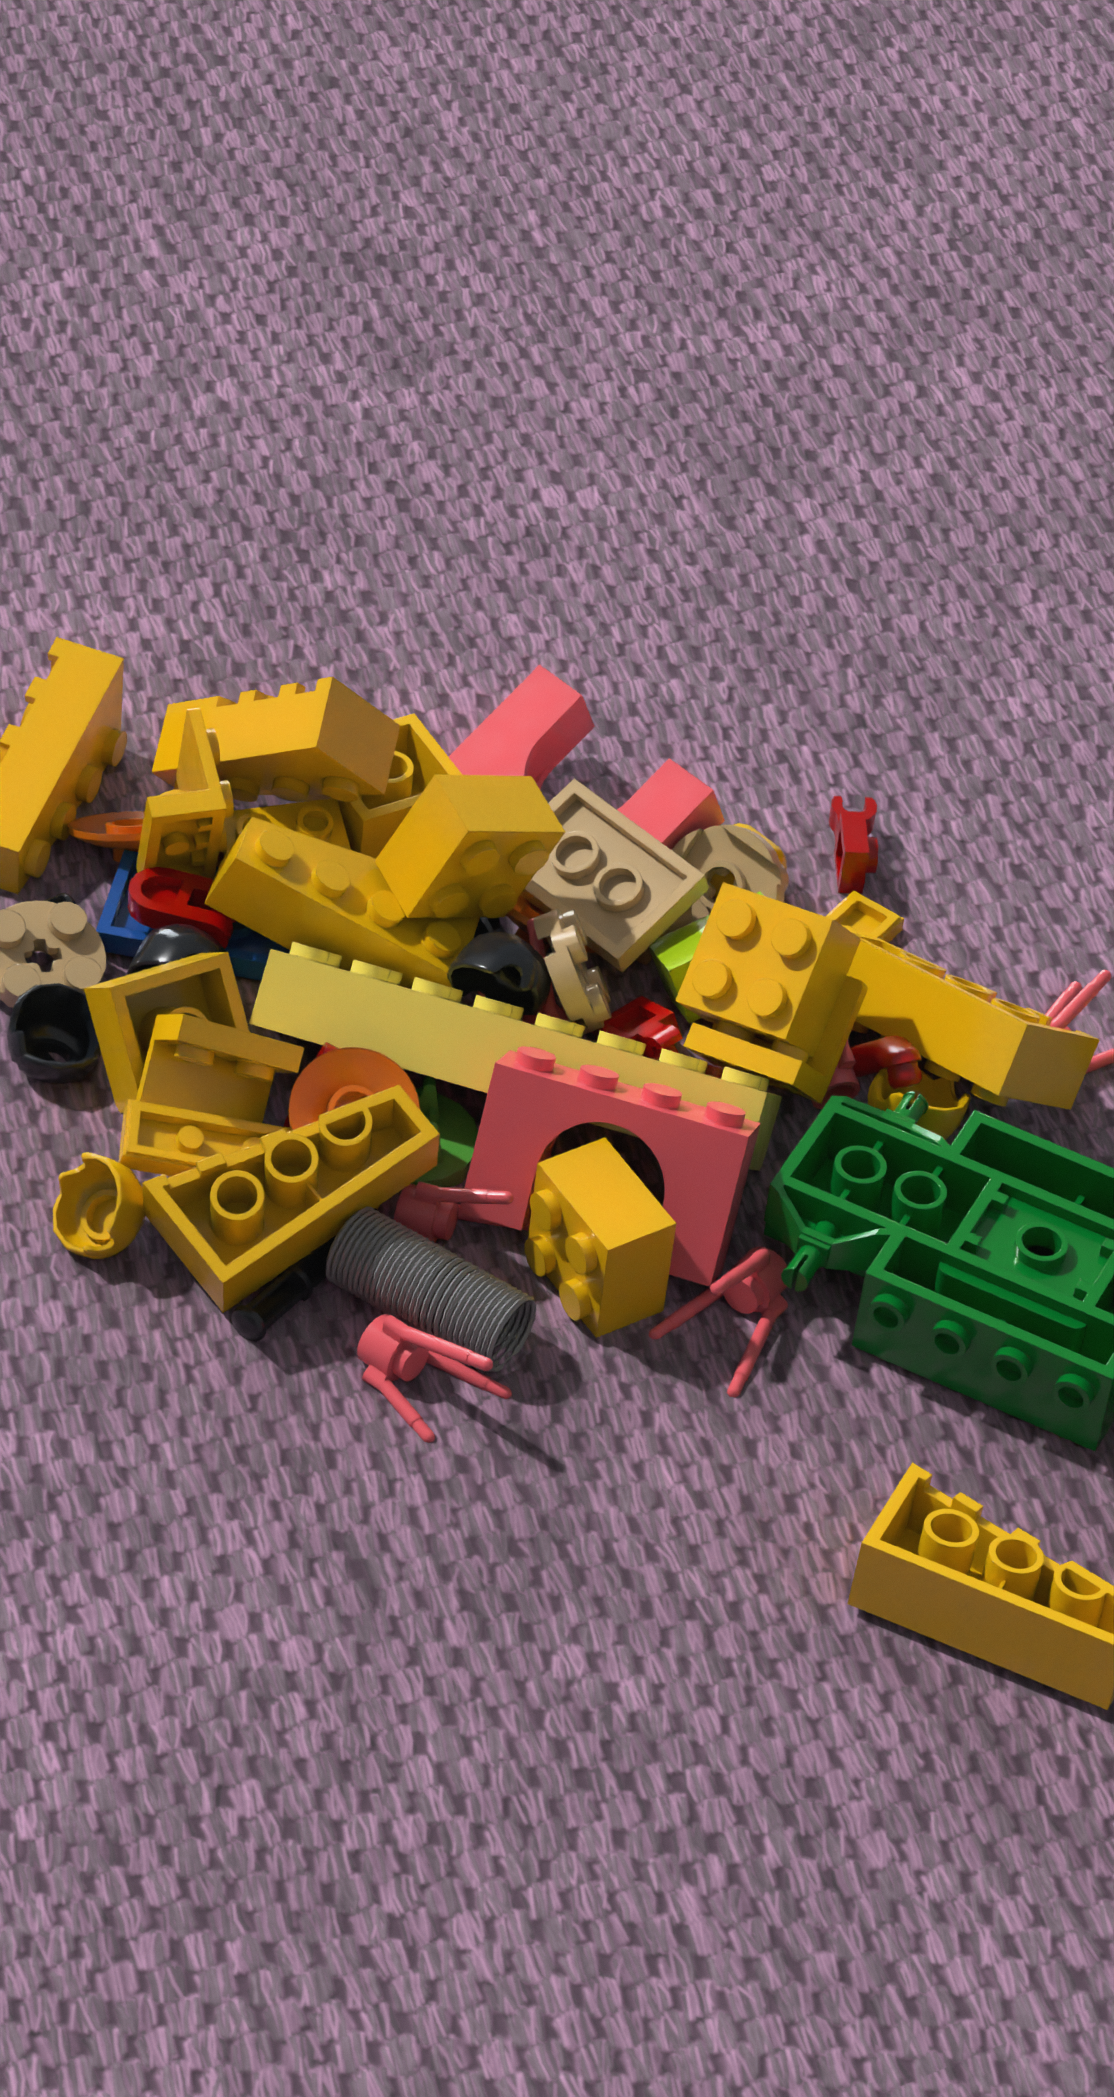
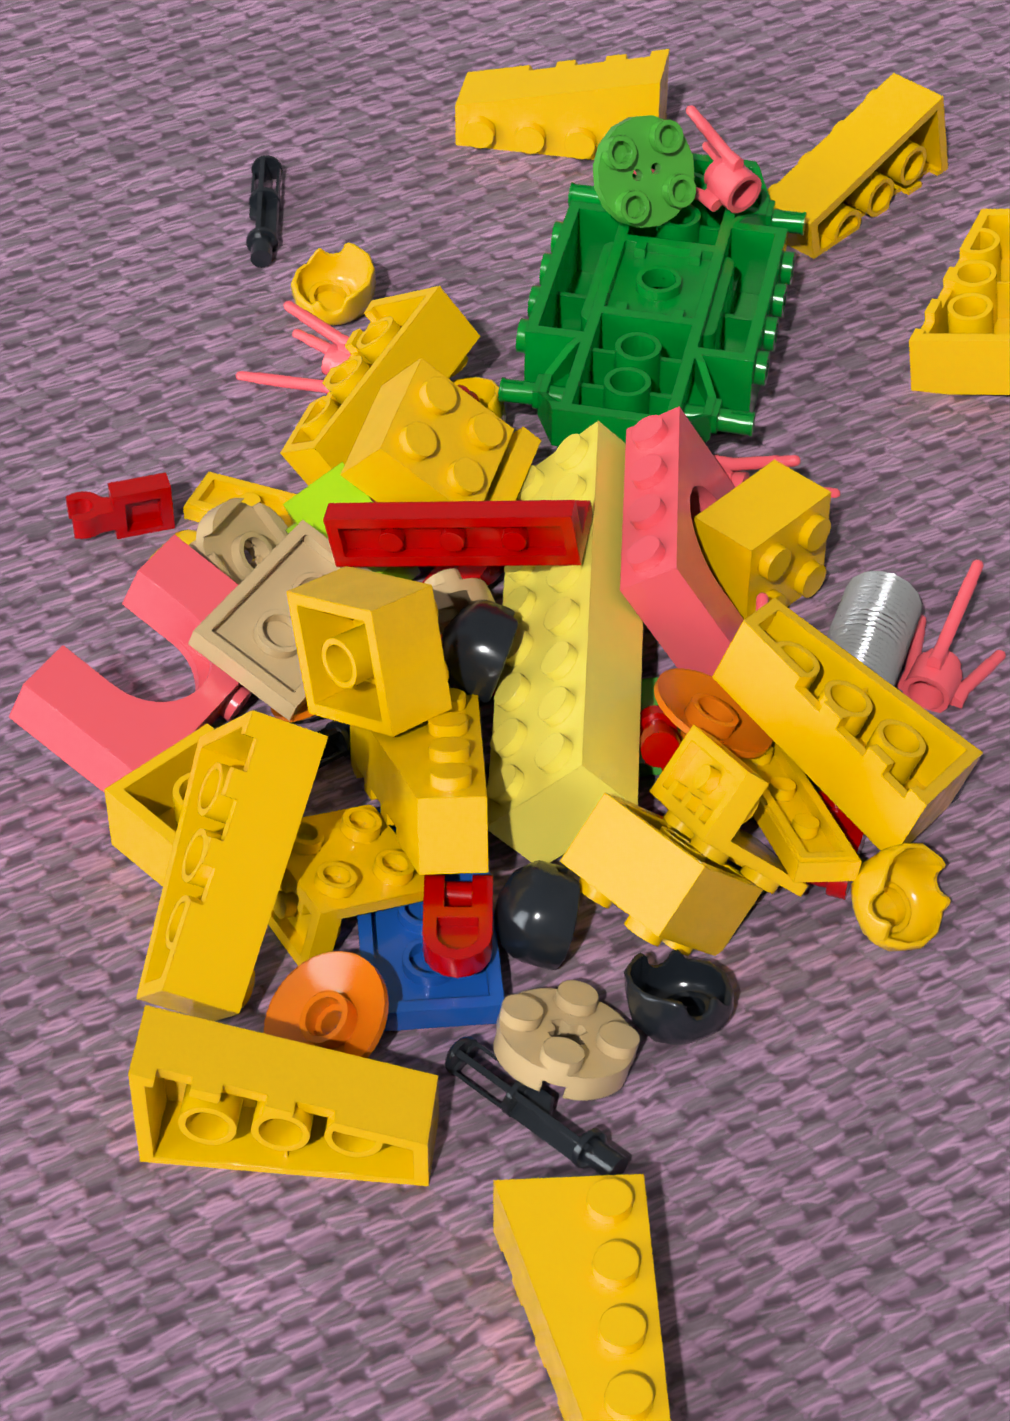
camera: 100 degrees left, 0 degrees up
(187, 825) = (356, 894): yellow bracket -> none
(609, 950) = (458, 533): none -> red fence

